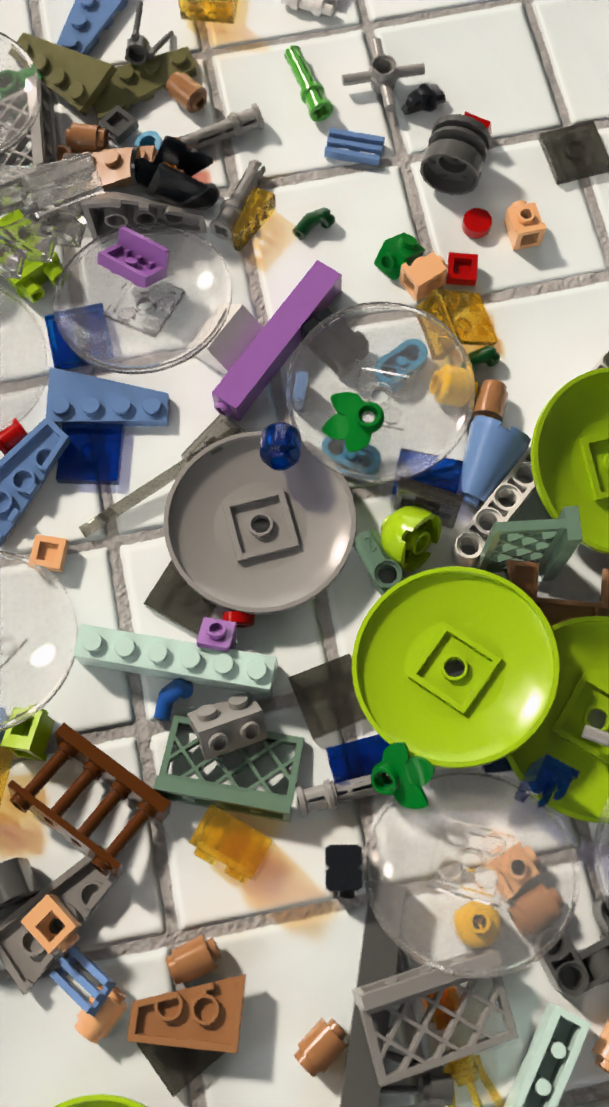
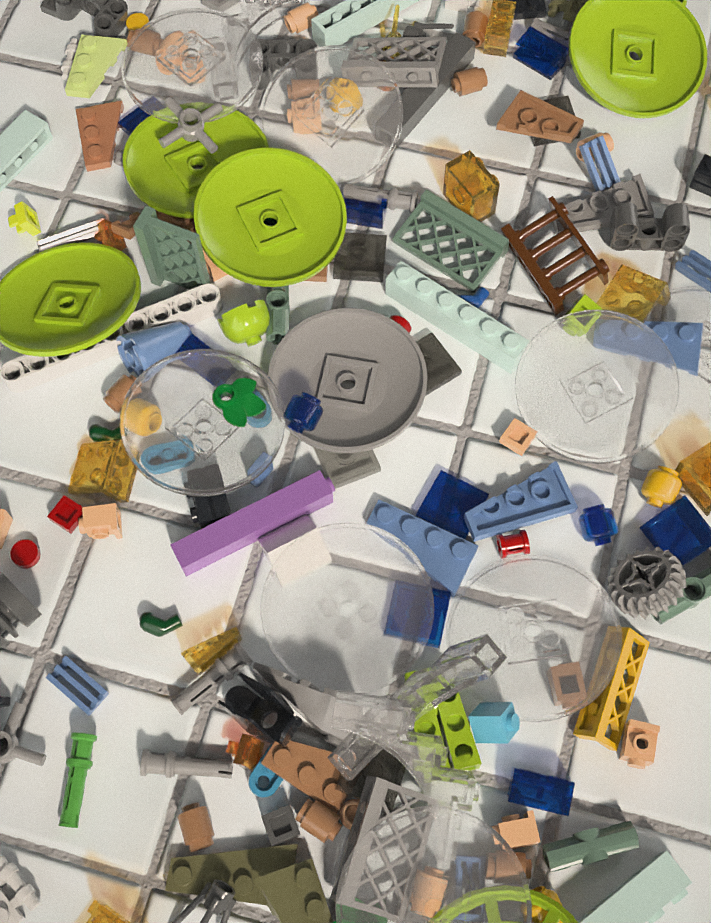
camera: 155 degrees left, 5 degrees down
(40, 922) = (607, 192): light nougat brick -> none
(136, 258) = (338, 633): medium lavender bracket -> none
(149, 488) = (406, 451): clear smoke bar -> none
(193, 959) = (525, 150): medium nougat brick -> none
(217, 634) = (419, 312): medium lavender bracket -> none
(228, 725) = (441, 261): light grey bracket -> none
(343, 874) = (408, 148): black brick -> none
(396, 252) = (107, 553): green bracket -> none
(407, 776) = (343, 174): green plate -> none
(439, 501) = (217, 330): clear smoke tile -> none
(545, 777) = (259, 124): clear blue hinge -> none

